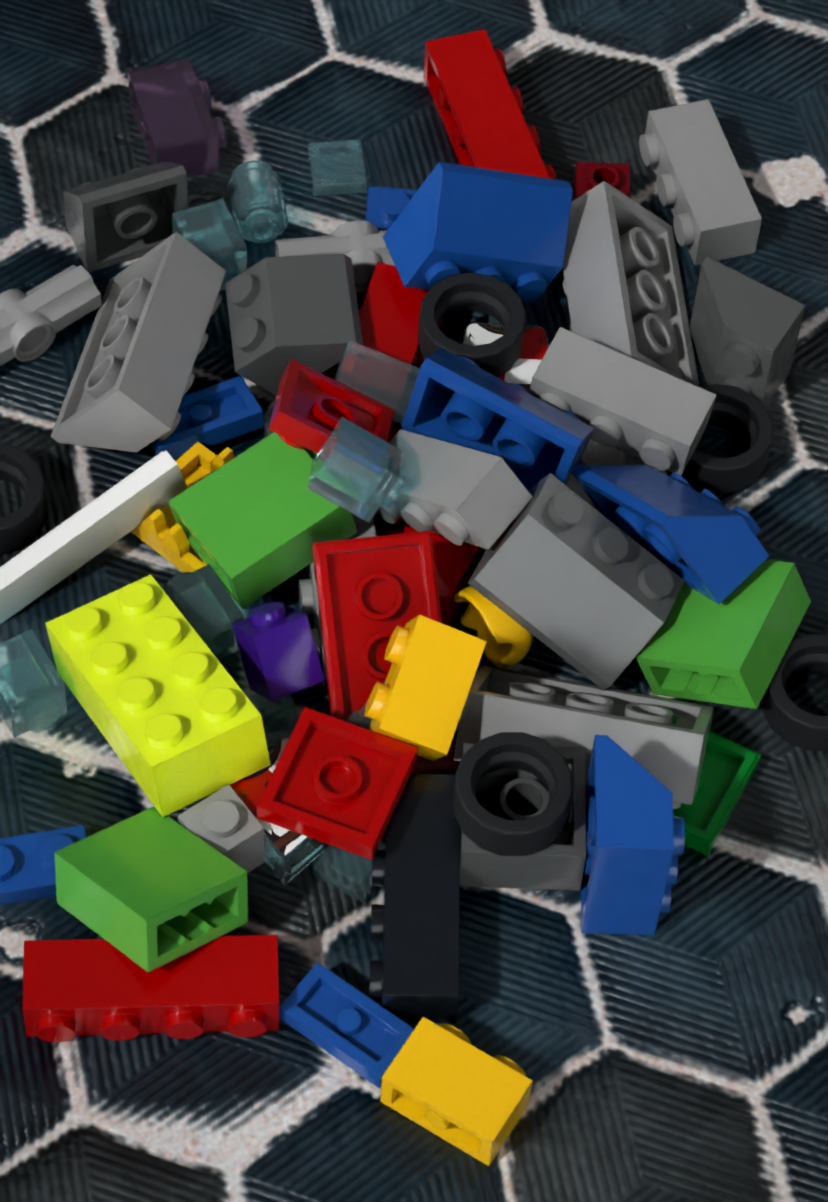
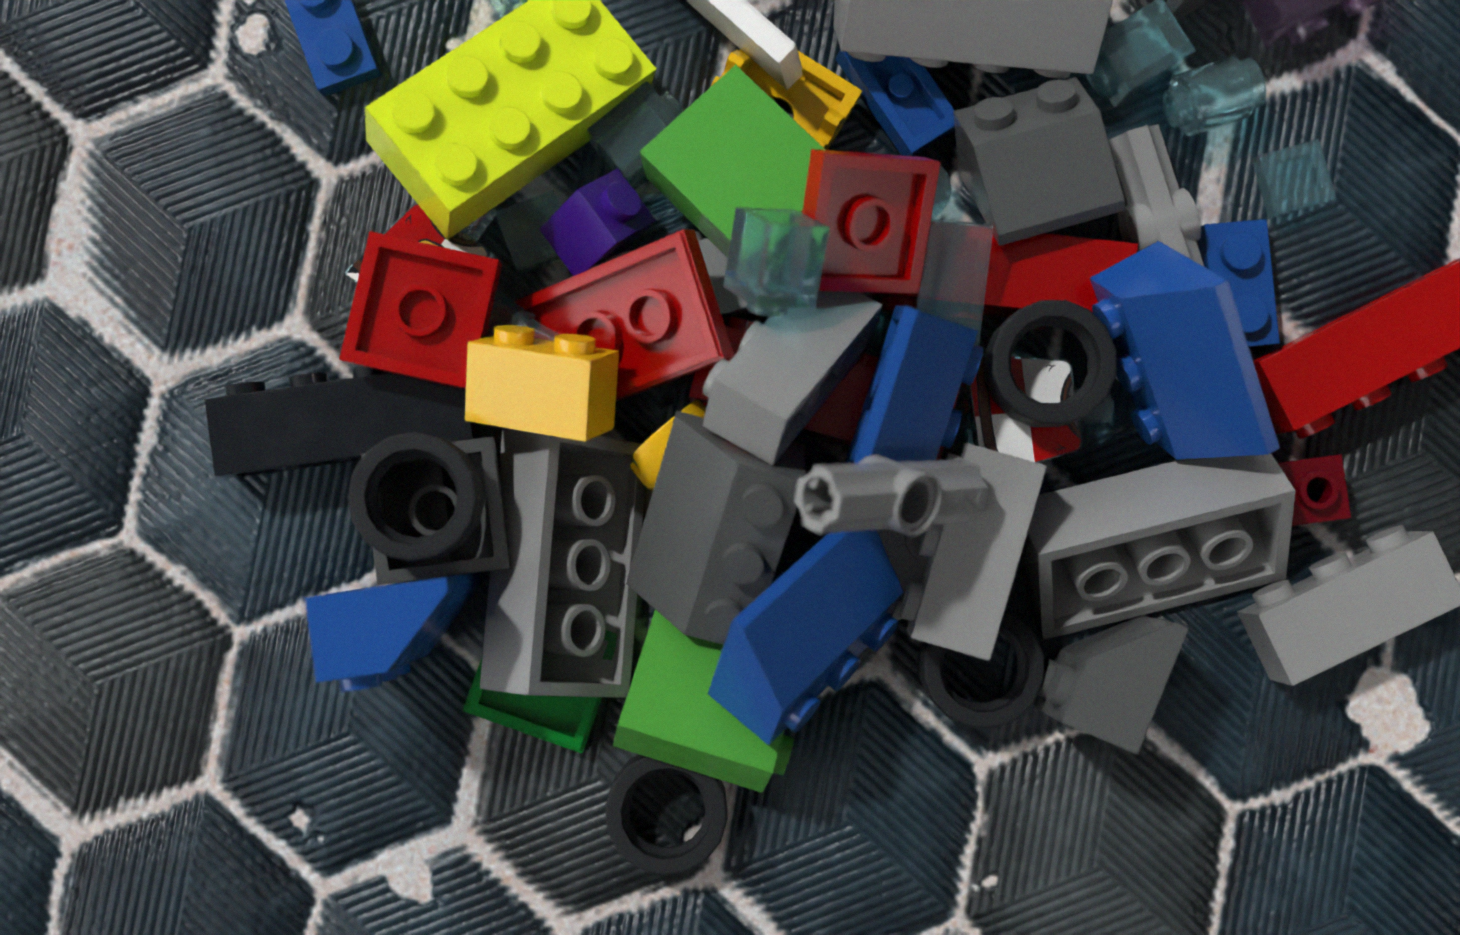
camera: 80 degrees right, 30 degrees up
(98, 990) = (199, 170): red brick -> none
(151, 888) = (275, 142): bright green brick -> none
(228, 827) = (366, 200): light grey brick -> none
(345, 1023) = (196, 368): blue plate -> none
(456, 1089) = (138, 490): yellow brick -> none
(574, 401) = (890, 495): none -> light grey piece

